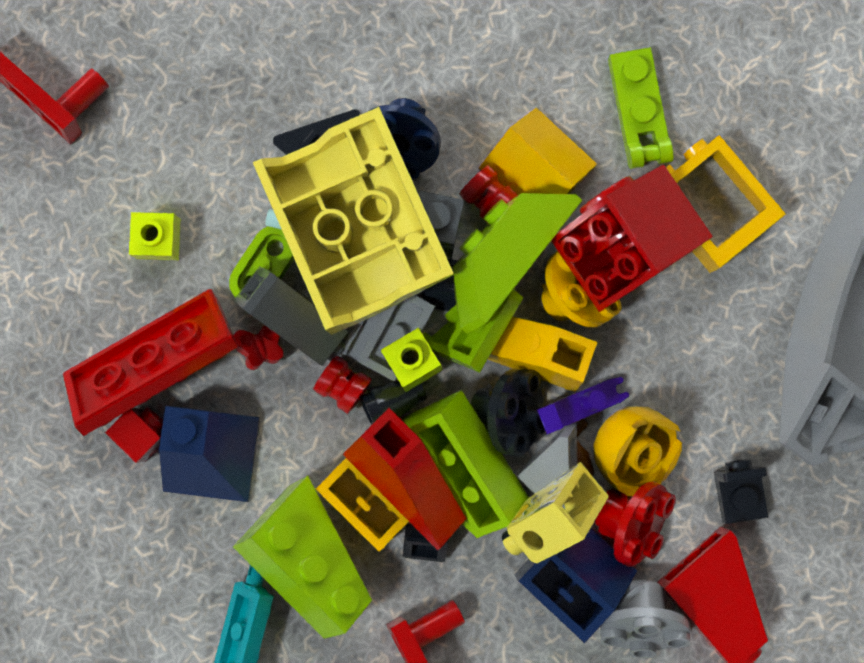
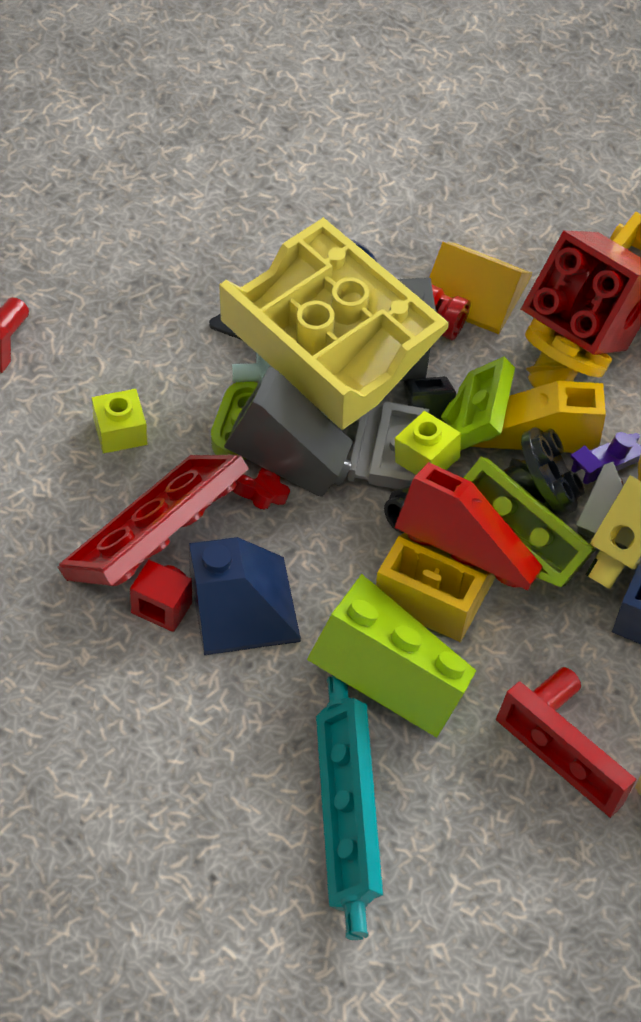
camera: 20 degrees left, 30 degrees down
(342, 384) = (359, 498): red wheel -> none
(419, 548) = (507, 617): black tile -> none
(505, 252) = (478, 326): lime wedge -> none
(640, 107) = (541, 210): lime plate -> none

